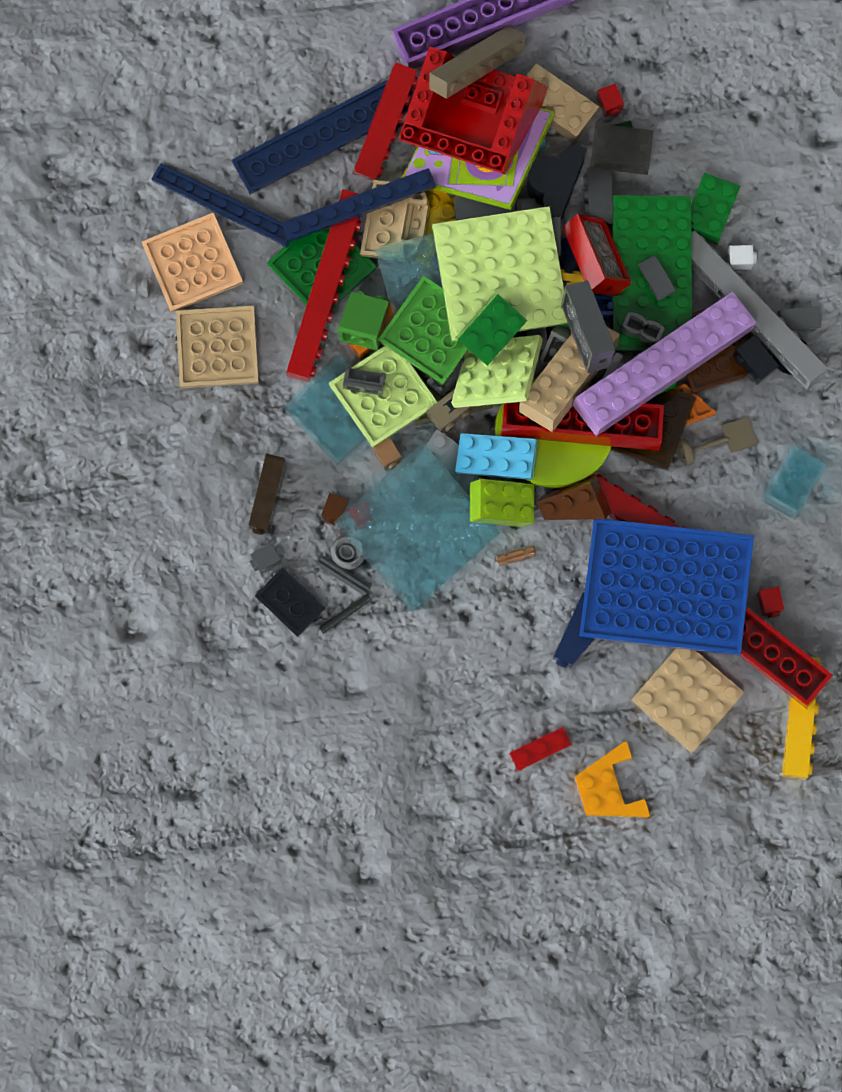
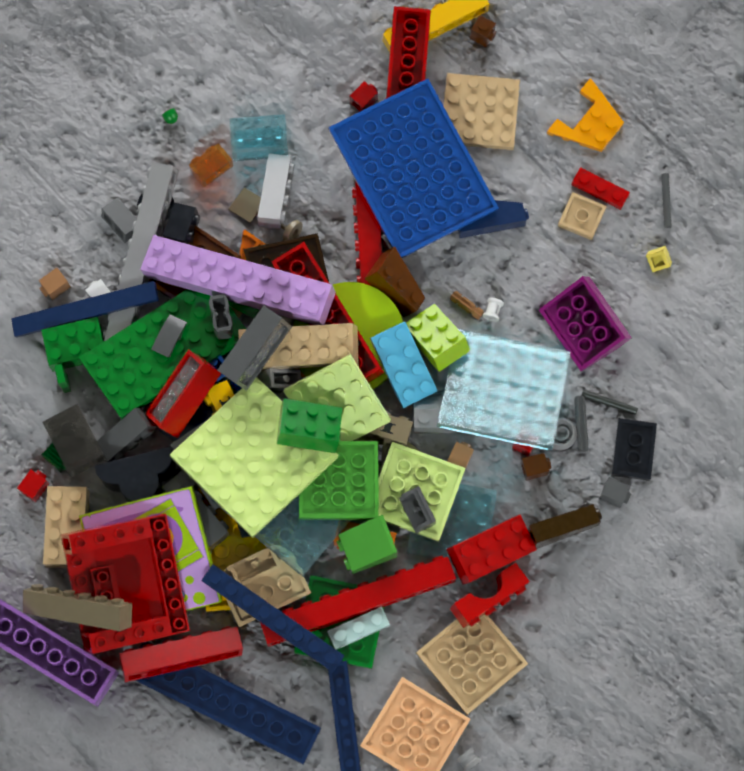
camera: 125 degrees left, 5 degrees down
(253, 366) = (471, 608): none -> red arch
(290, 419) = (491, 549): none -> red brick
(305, 272) = (358, 628): none -> light aqua plate
(427, 642) = (585, 323): none -> magenta slope
(439, 750) = (659, 259): none -> light yellow slope
(488, 798) = (666, 200): none -> dark grey bar
(495, 573) = (493, 309): none -> white bush
(526, 714) = (582, 216): none -> tan tile
(685, 177) = (62, 378): none -> green tile
(733, 233) = (85, 309): none -> dark blue tile
(733, 461) = (274, 191): none -> brick
(761, 752) = (483, 31): none -> reddish brown brick
(778, 226) = (53, 284): none -> medium nougat brick
(797, 425) = (210, 164): none -> clear orange brick

